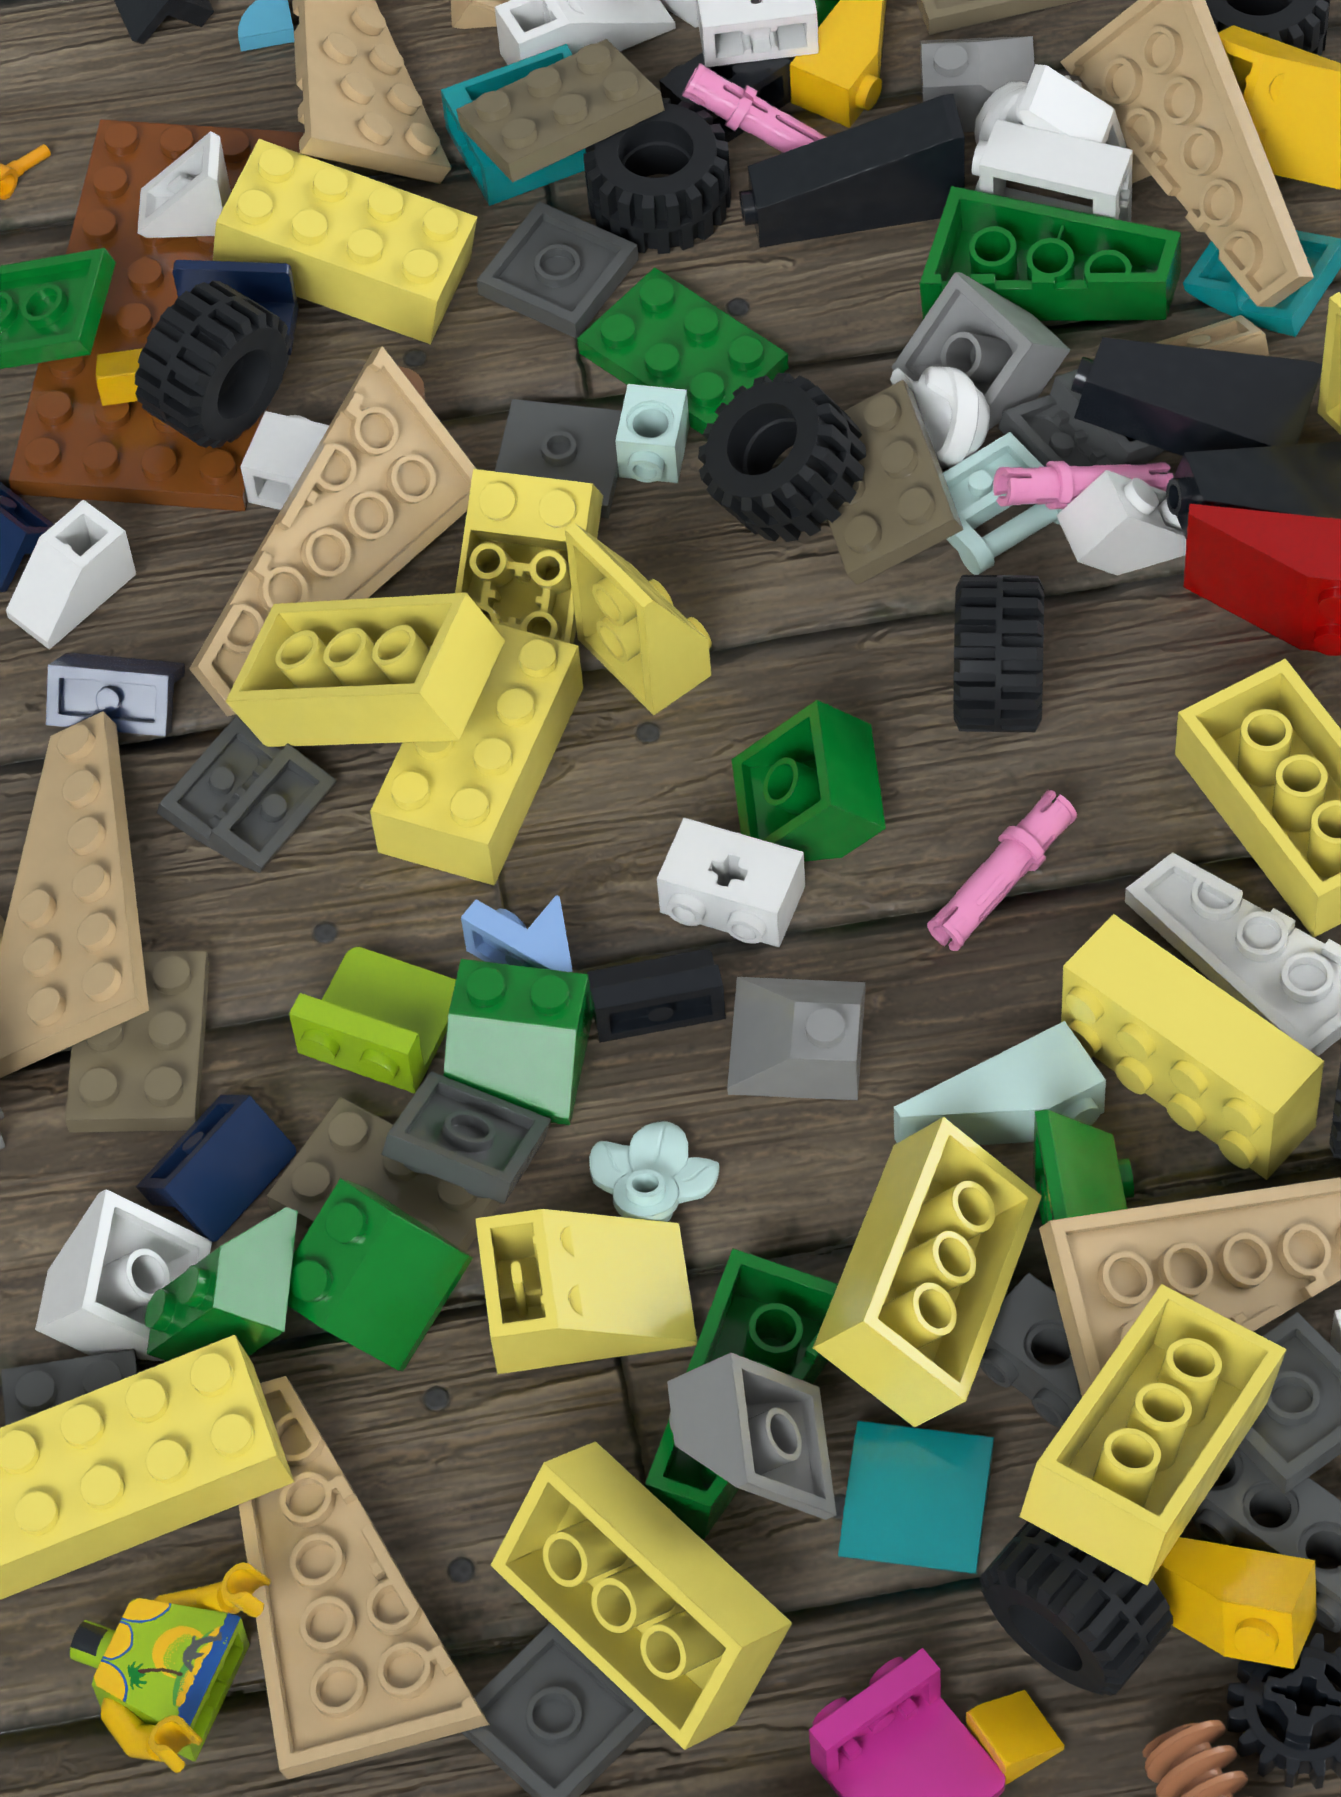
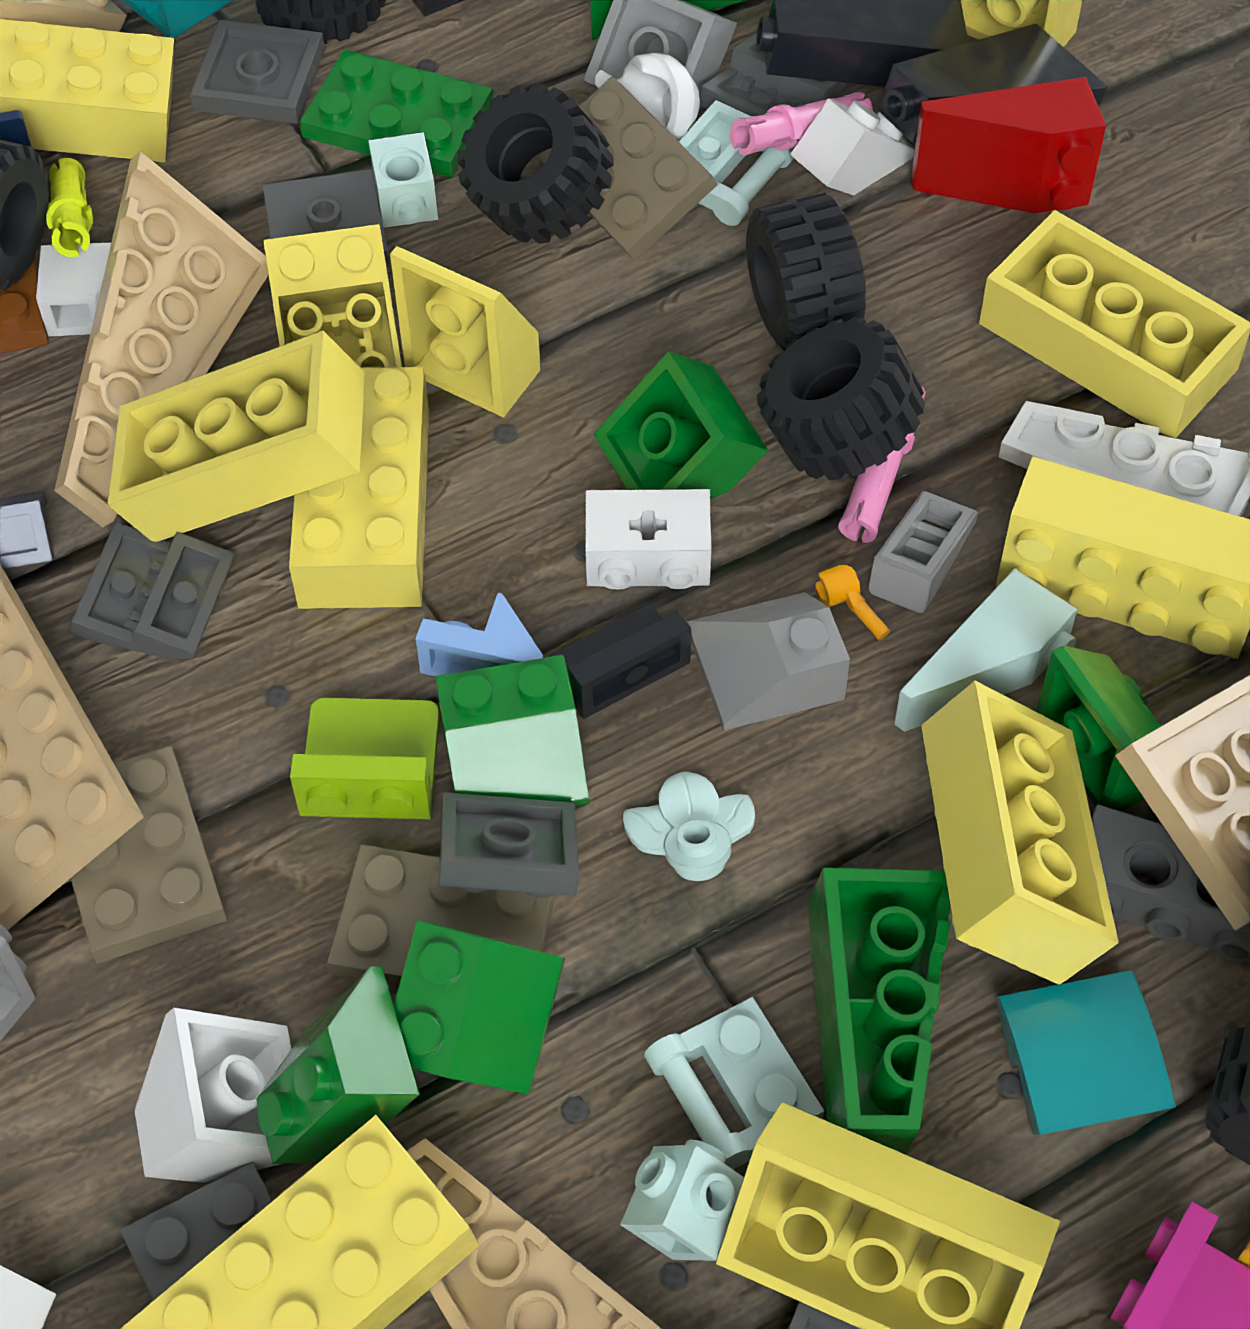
camera: 25 degrees left, 0 degrees up
(219, 1165) = (265, 947): dark blue panel -> none
(304, 384) = (68, 210): none -> neon yellow pin
(481, 1500) = (683, 1200): none -> light aqua brick
(582, 1287) = (676, 954): light yellow slope -> none
(604, 1402) = (749, 1068): none -> light aqua plate
(755, 1431) = (937, 1039): light grey slope -> none
(899, 987) = (842, 585): none -> light orange hand
(974, 797) = (841, 398): none -> black tyre
(975, 1003) = (920, 555): none -> light grey slope

